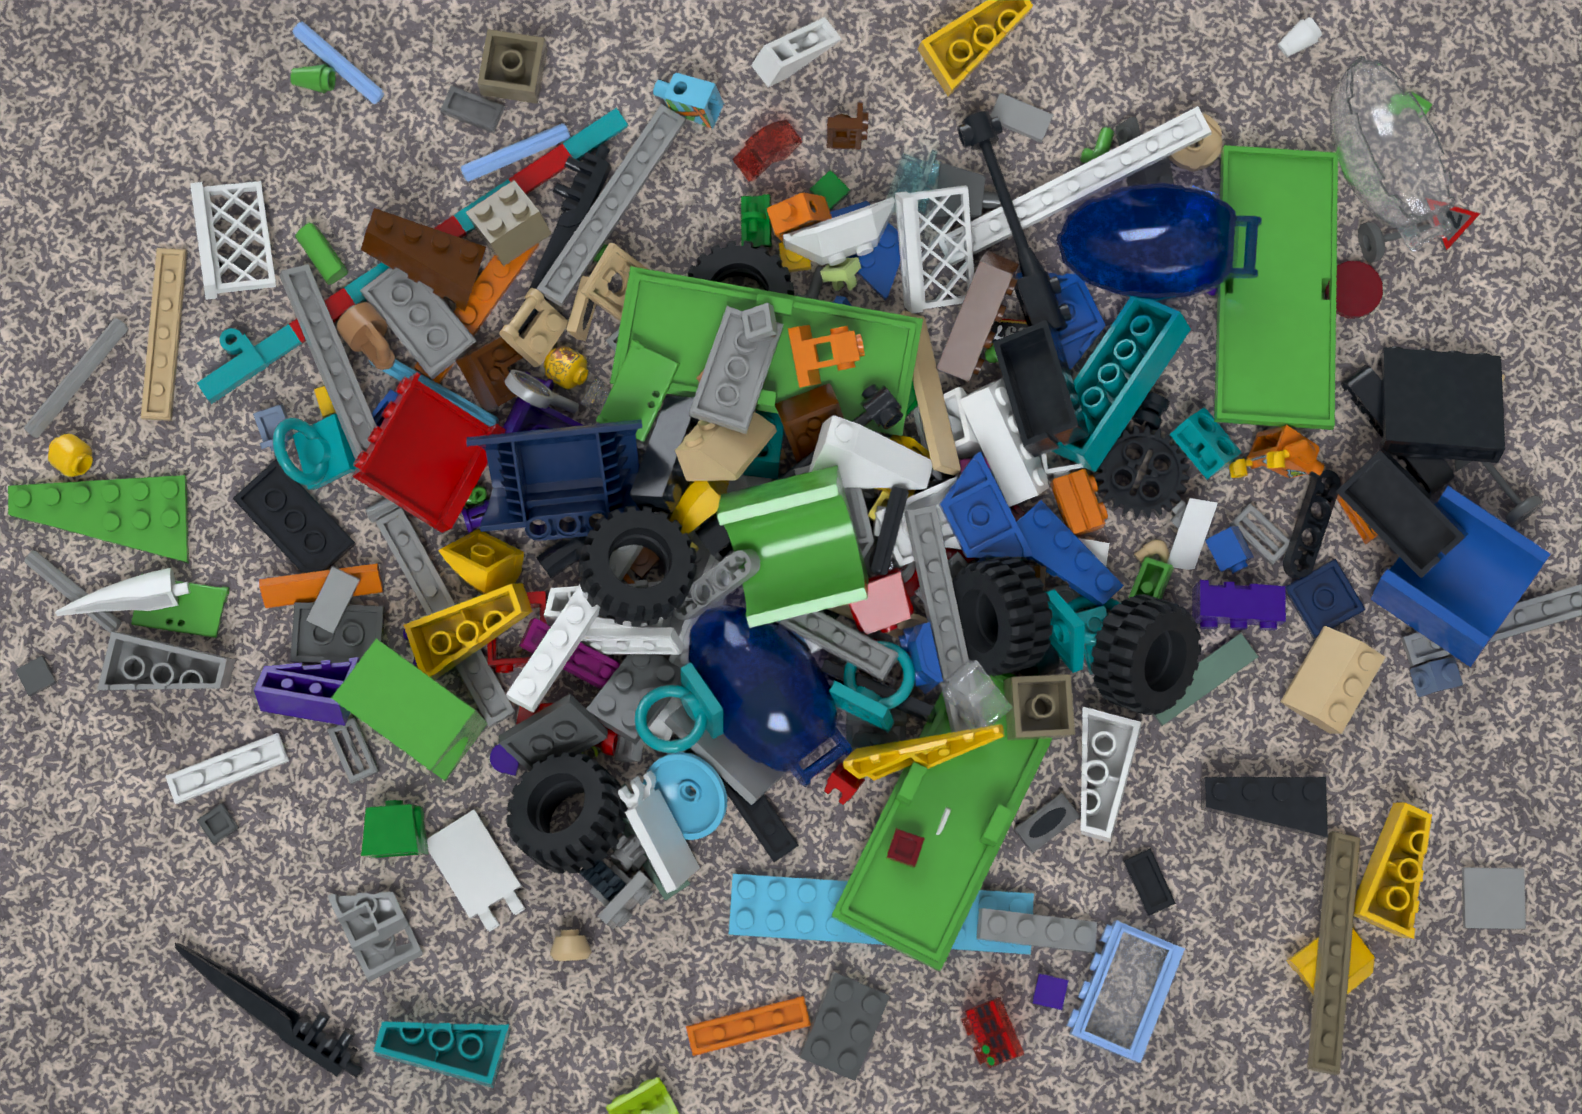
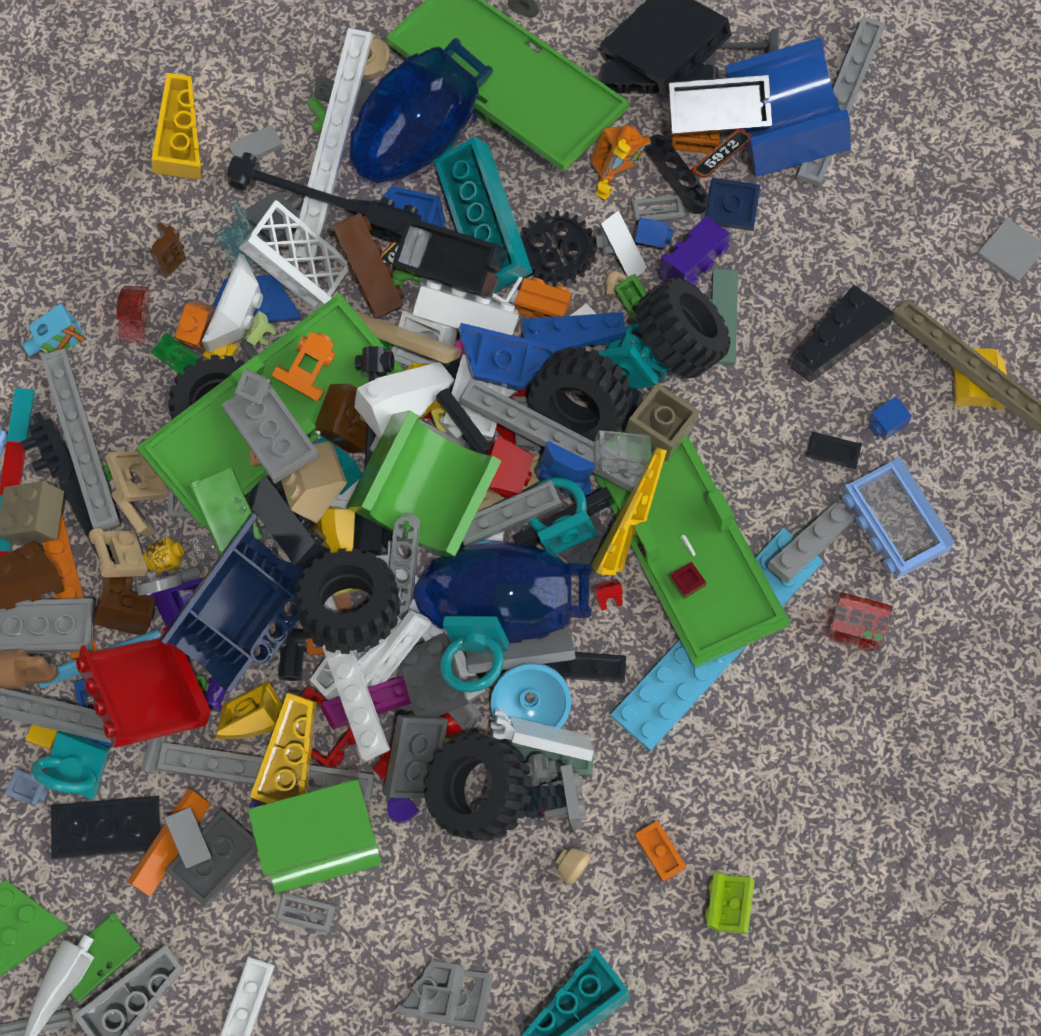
camera: 50 degrees left, 10 degrees down
(304, 690) = (238, 907): dark purple wedge -> none
(394, 831) = (388, 925): green torso -> none
(475, 868) = (462, 890): white tile -> none
(643, 1014) = (660, 851): none -> orange plate
(748, 1026) = (725, 786): orange tile -> none
(794, 51) = (83, 247): white slope -> none
(831, 188) = (196, 292): green tile -> none
(844, 1026) = (776, 720): dark grey plate -> none
(1047, 823) = (741, 484): flat silver tile -> none
(1050, 991) = (858, 568): dark purple tile -> none
(1106, 764) = (737, 418): white wedge -> none
(1151, 411) = (521, 211): black wheel -> none
(1205, 443) = (570, 194): teal brick -> none
(1219, 910) = (889, 419): none -> blue brick
(1332, 680) = (792, 236): tan slope -> none
(1357, 289) = (550, 31): dark red tile -> none
(1362, 551) = (722, 153): none -> sticker
(1394, 873) = (949, 292): yellow wedge -> none
(1436, 676) = (839, 176): sand blue bracket -> none

